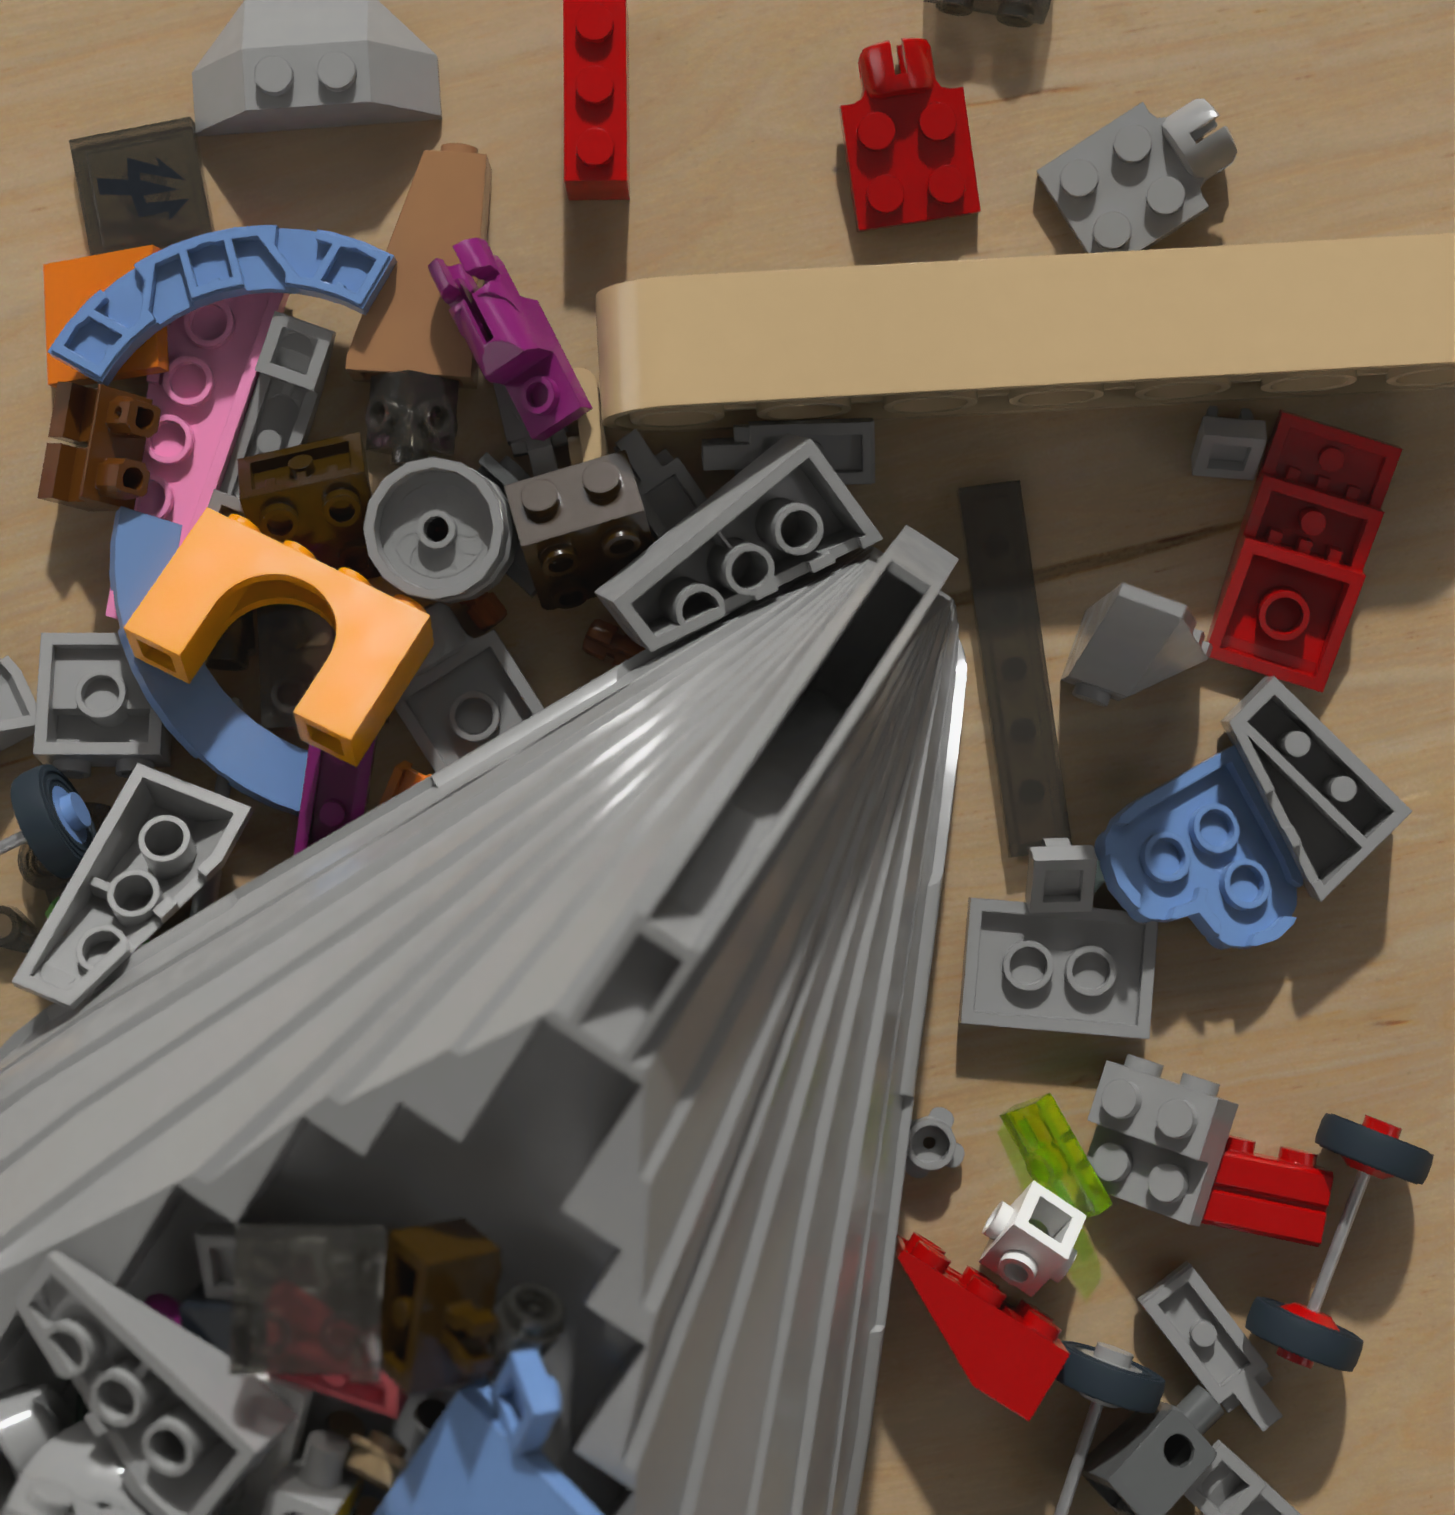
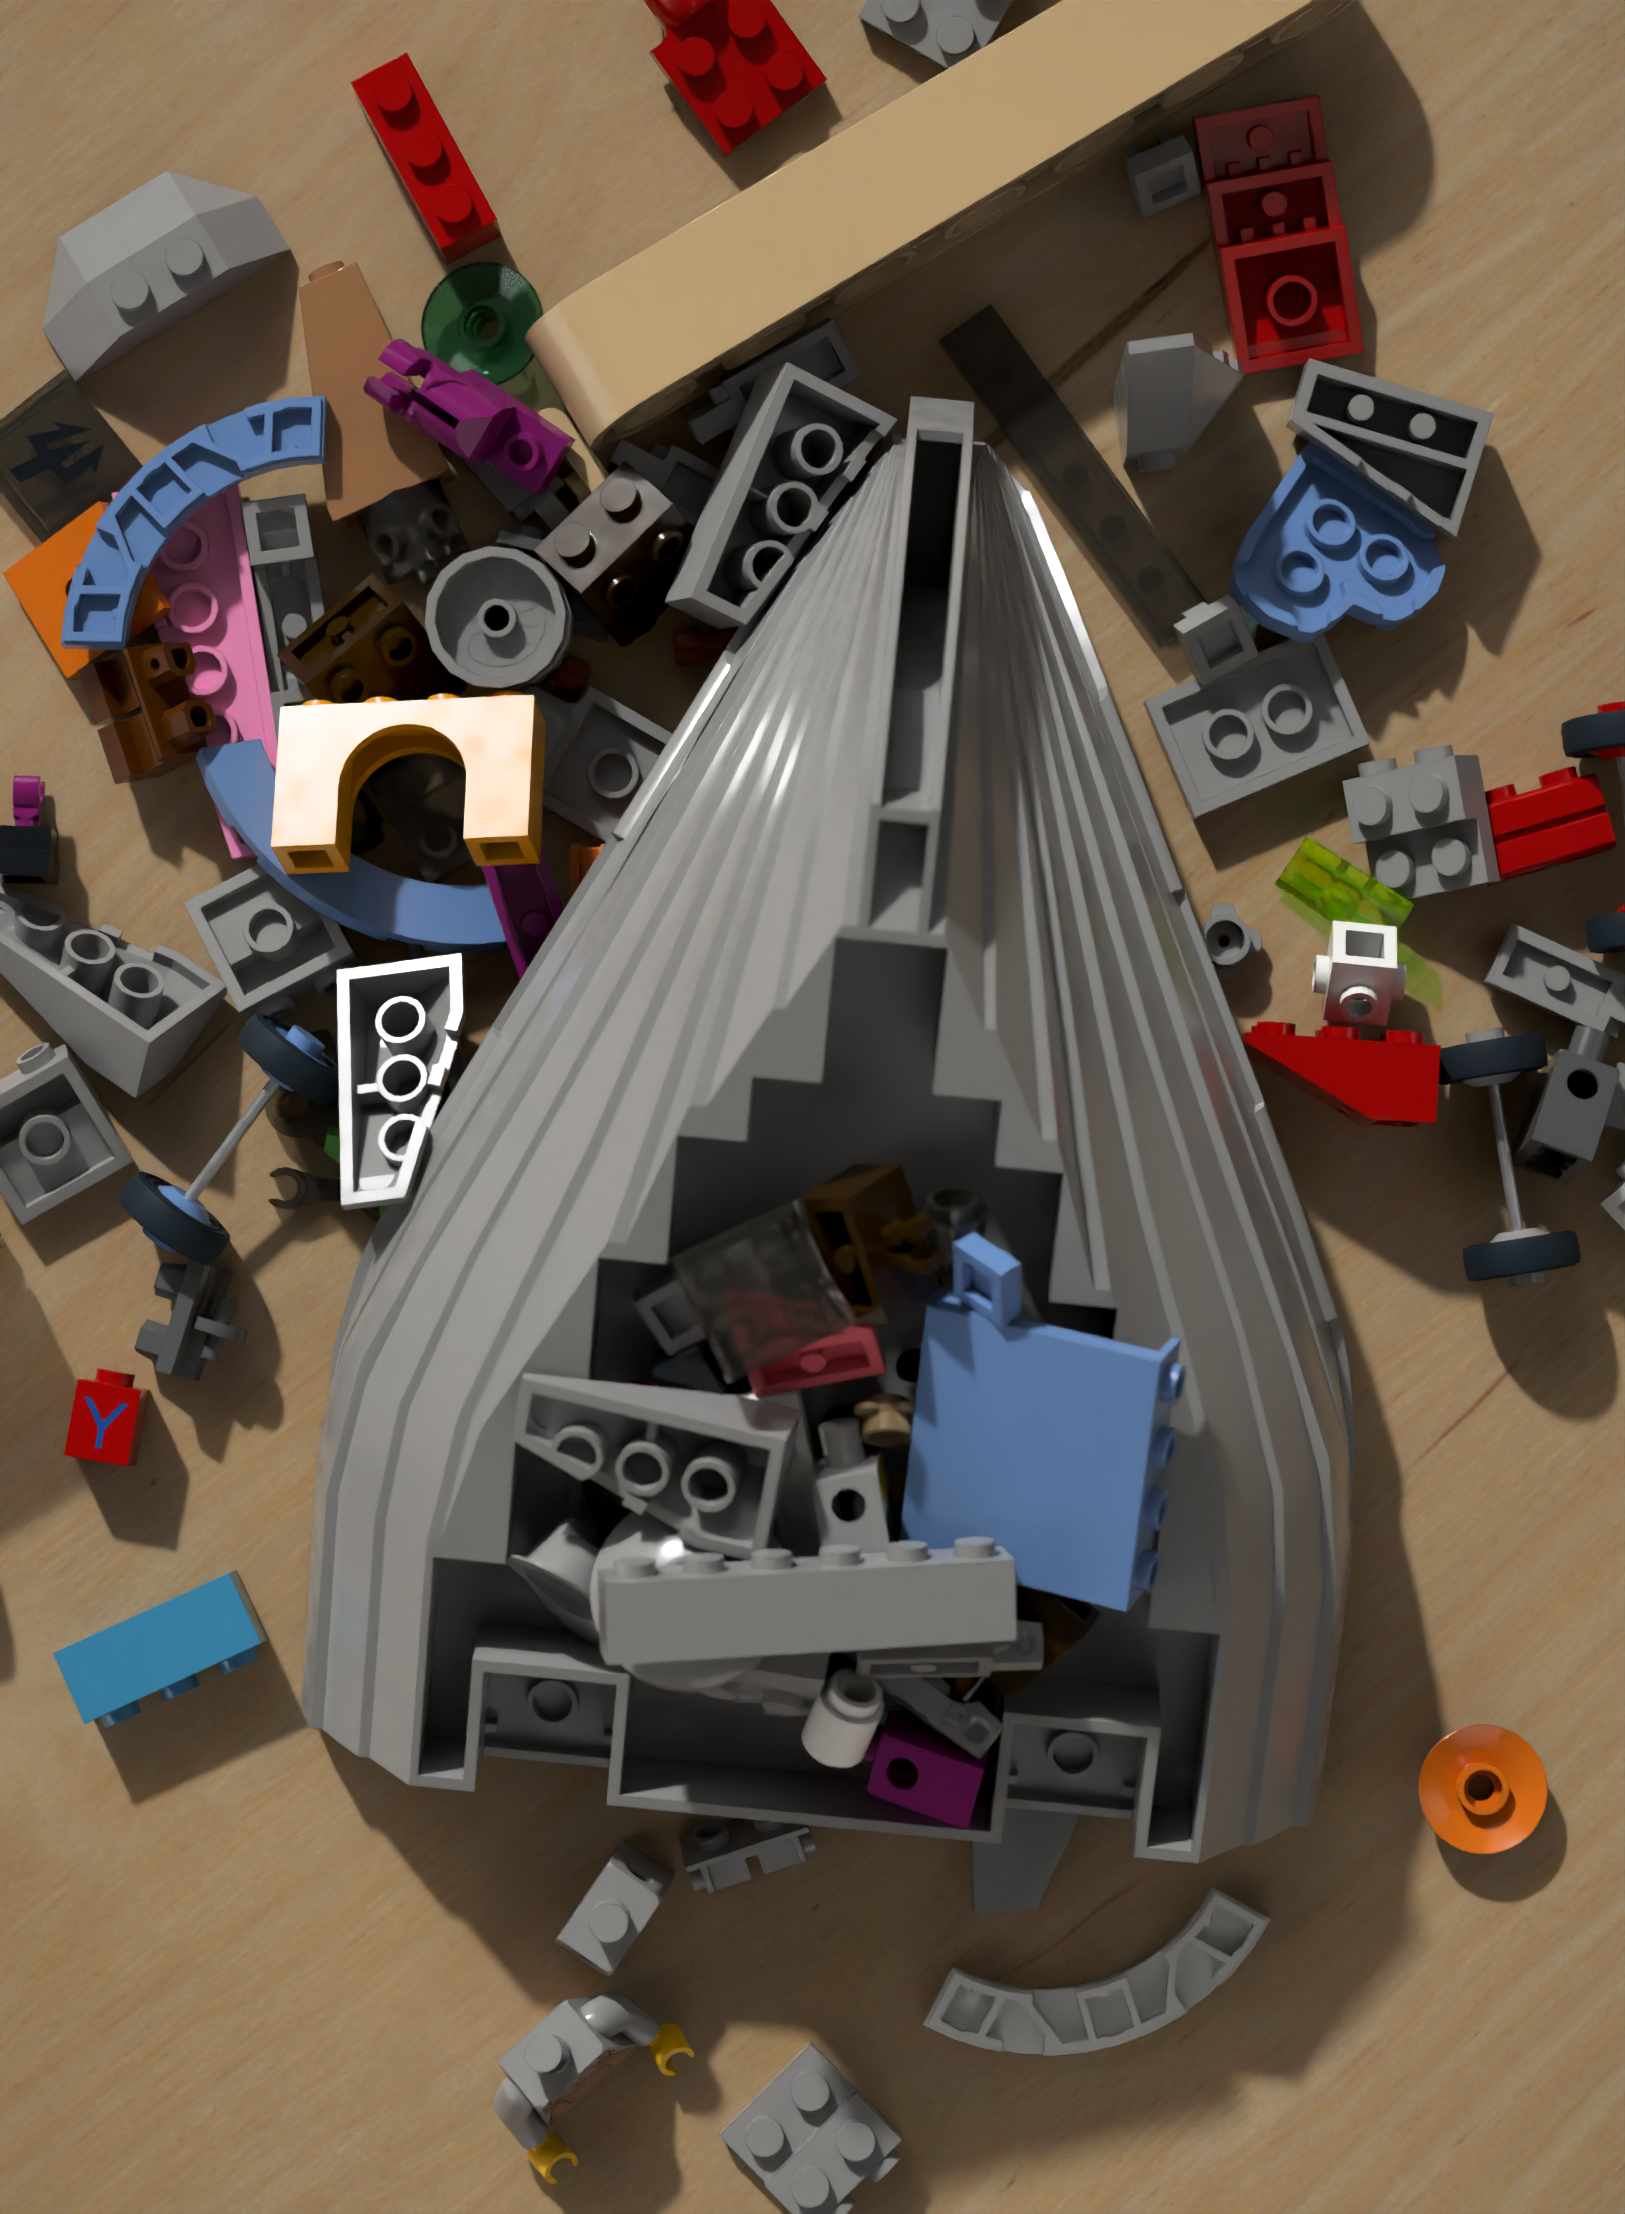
camera: 25 degrees left, 0 degrees up
(554, 247) = (465, 304): none -> clear green dish

